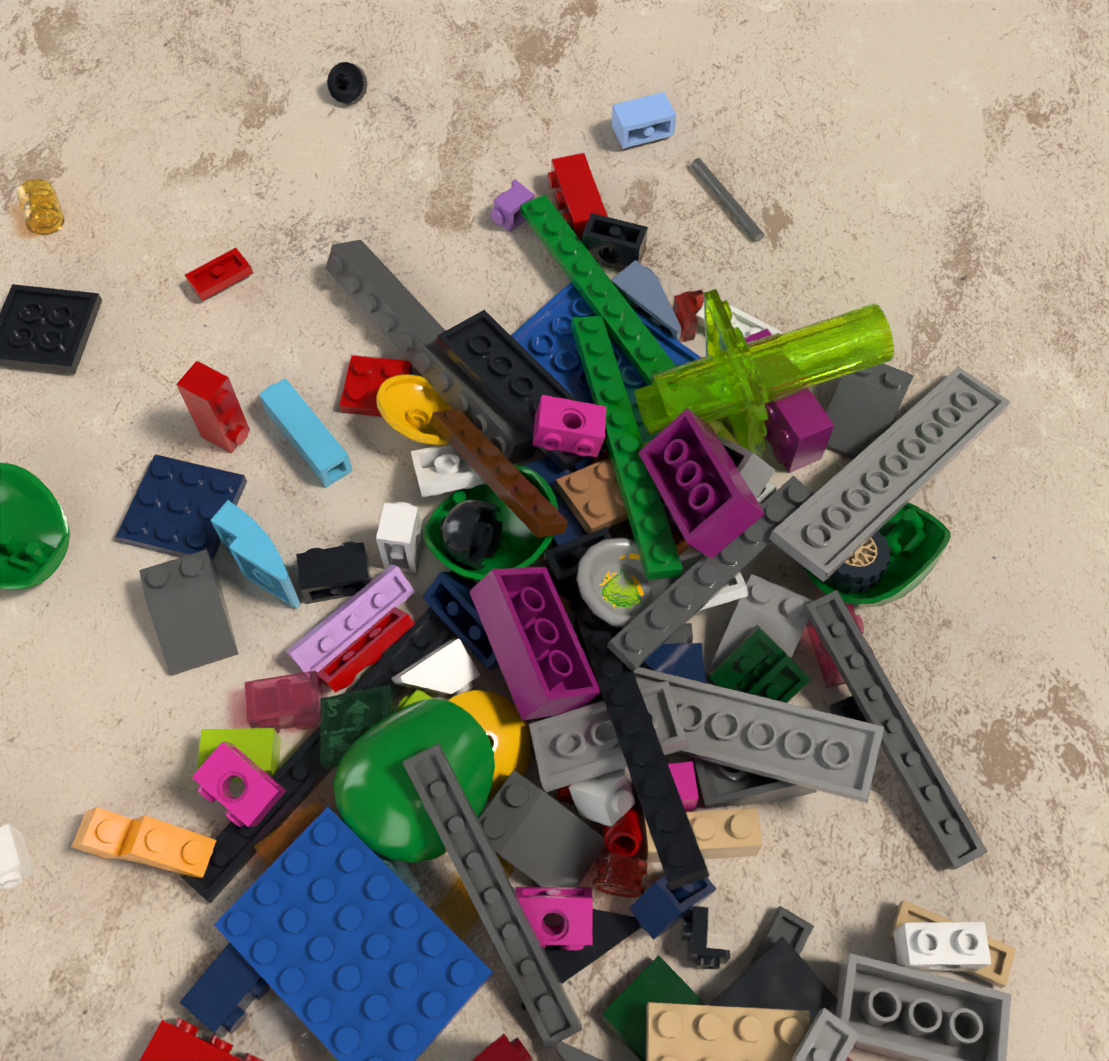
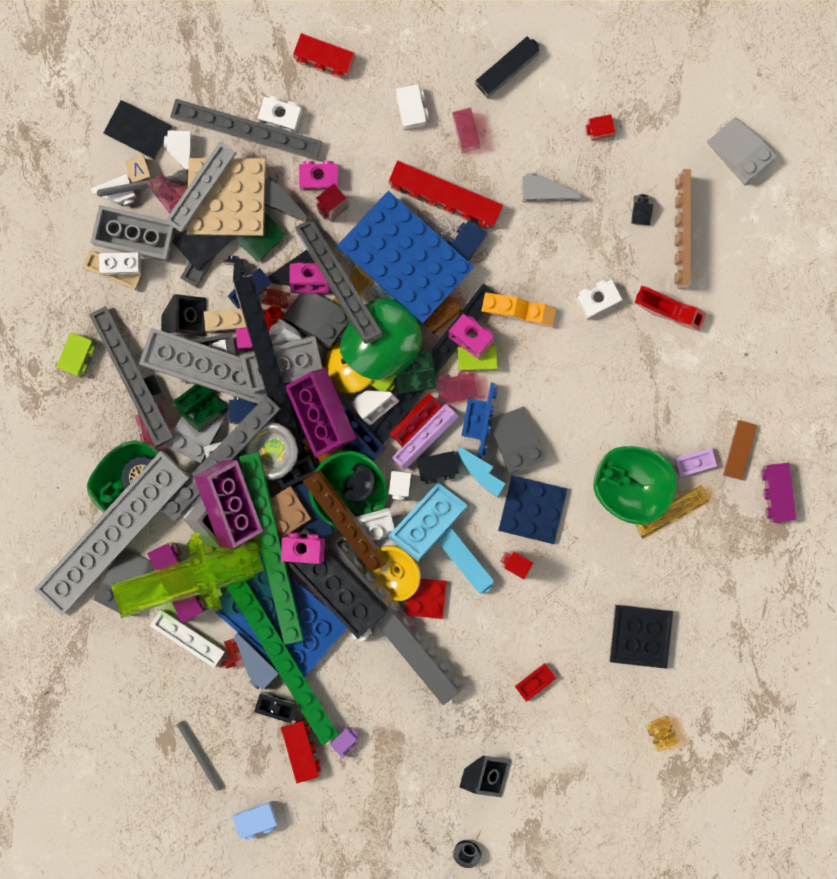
camera: 175 degrees right, 25 degrees up
(251, 647) = (477, 418): none -> blue bracket
(312, 162) = (486, 776): none -> black slope
(357, 478) = (428, 521): none -> medium azure plate
(799, 843) = (184, 316): none -> black slope
(1000, 775) = (76, 354): none -> lime brick

